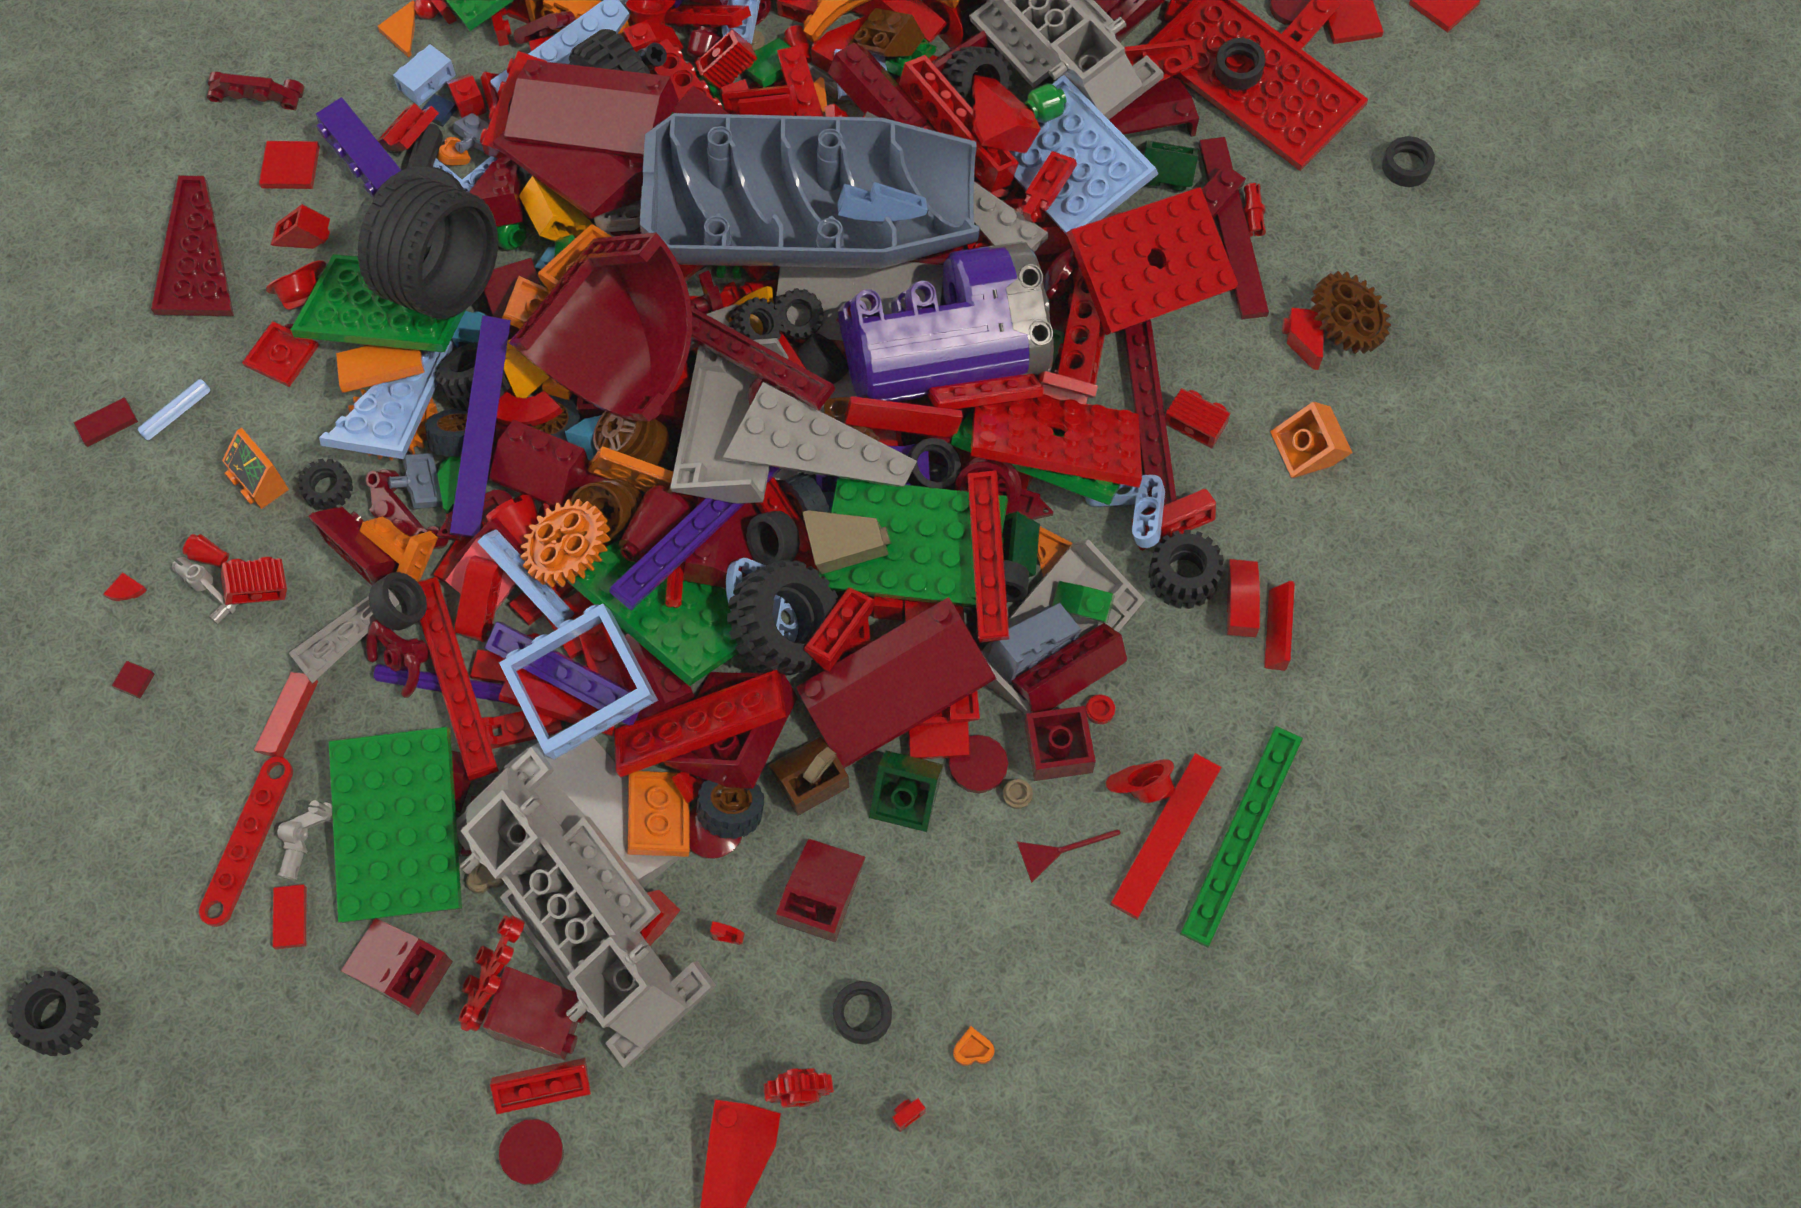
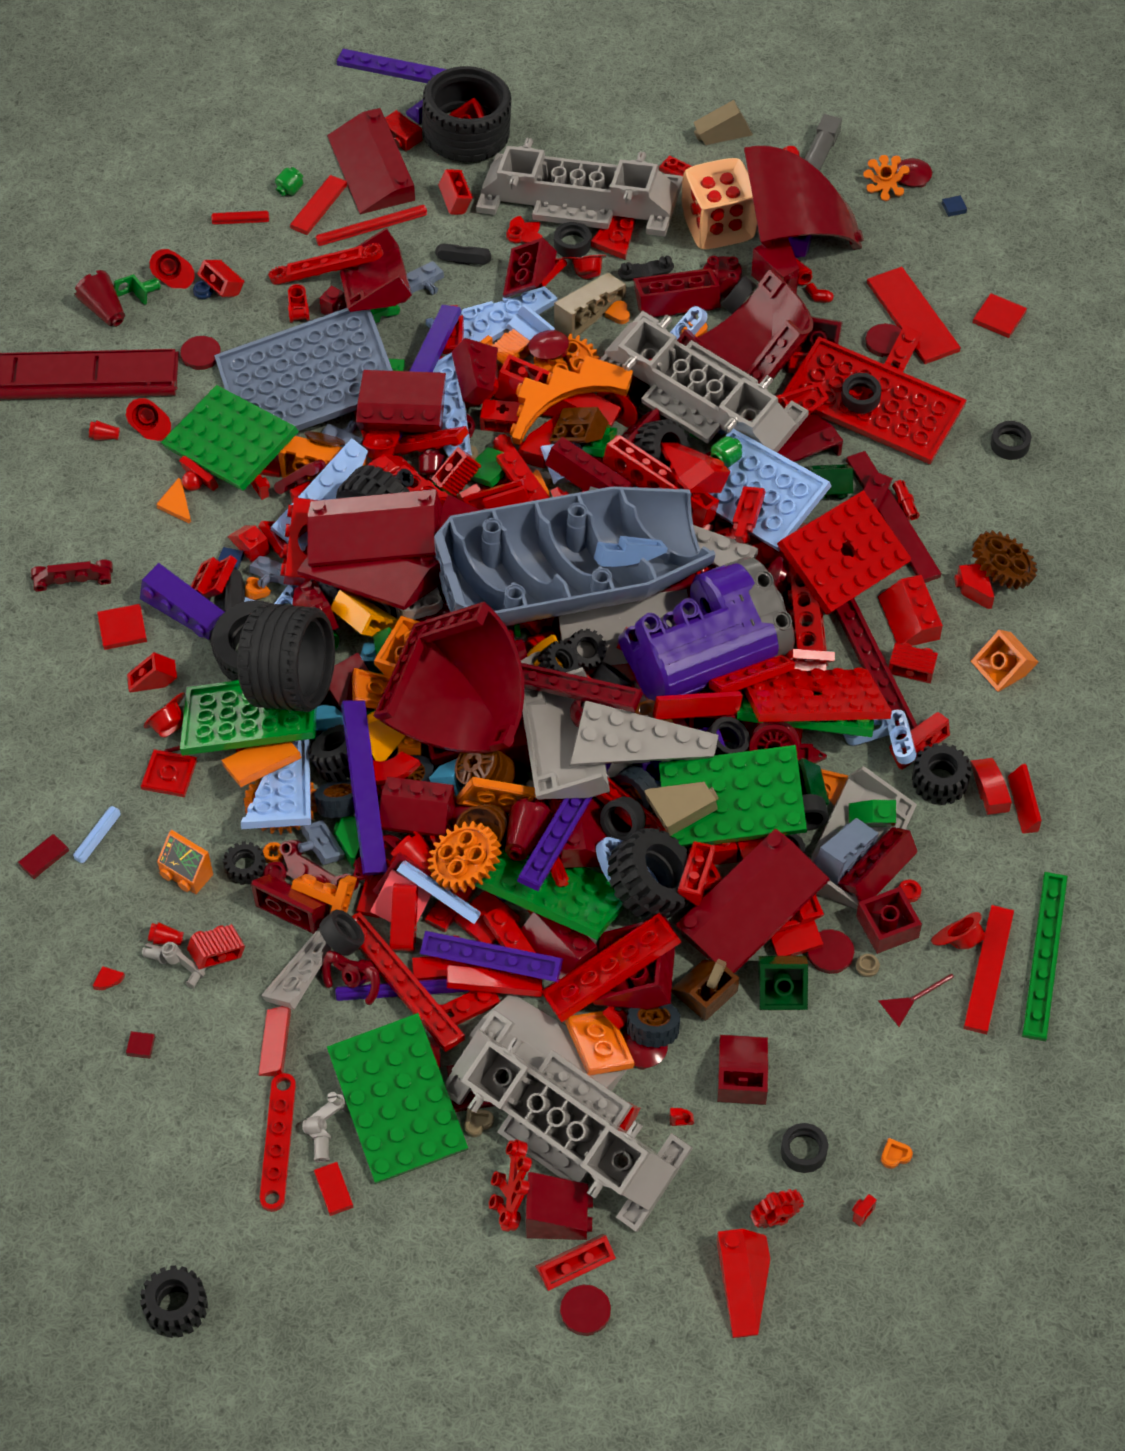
camera: 15 degrees left, 10 degrees down
(192, 263) = (70, 719): dark red wing -> none
(356, 482) = (269, 847): none -> orange bush
(358, 502) = (276, 869): none -> dark red tile
(397, 965) = (434, 1200): dark red slope -> none
(424, 74) = (210, 533): light blue hinge -> none
(598, 721) = (535, 981): light blue window -> none
(988, 556) = (797, 791): red tile -> none
(1215, 353) = (911, 612): none -> red slope

